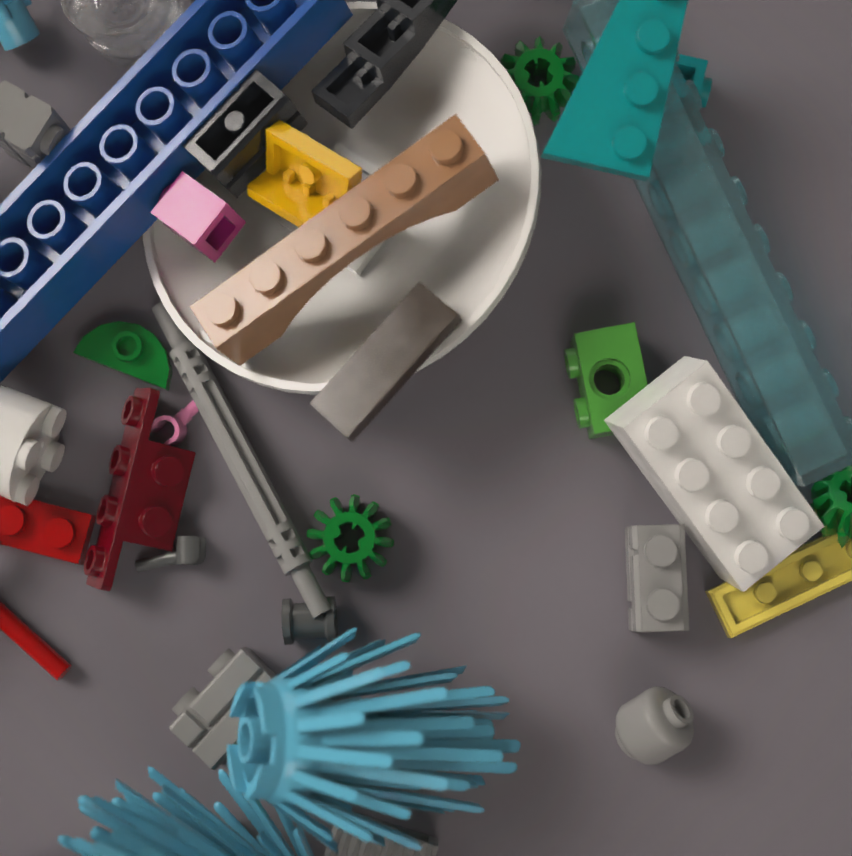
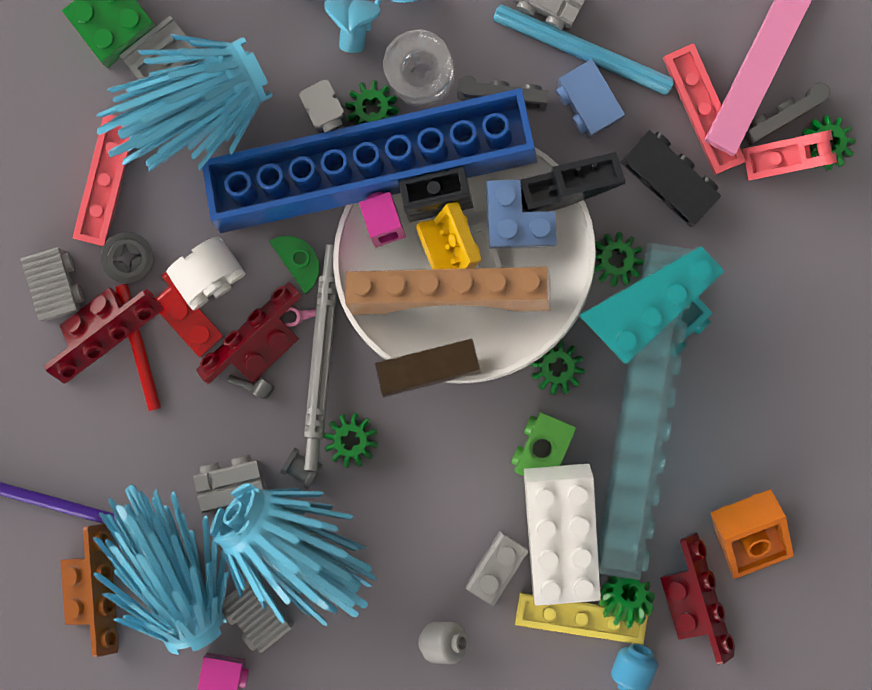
camera: 30 degrees right, 5 degrees up
(85, 85) = (370, 97): none -> green gear
(368, 106) = (509, 225): none -> medium blue plate
(575, 271) = (562, 376): none -> green gear

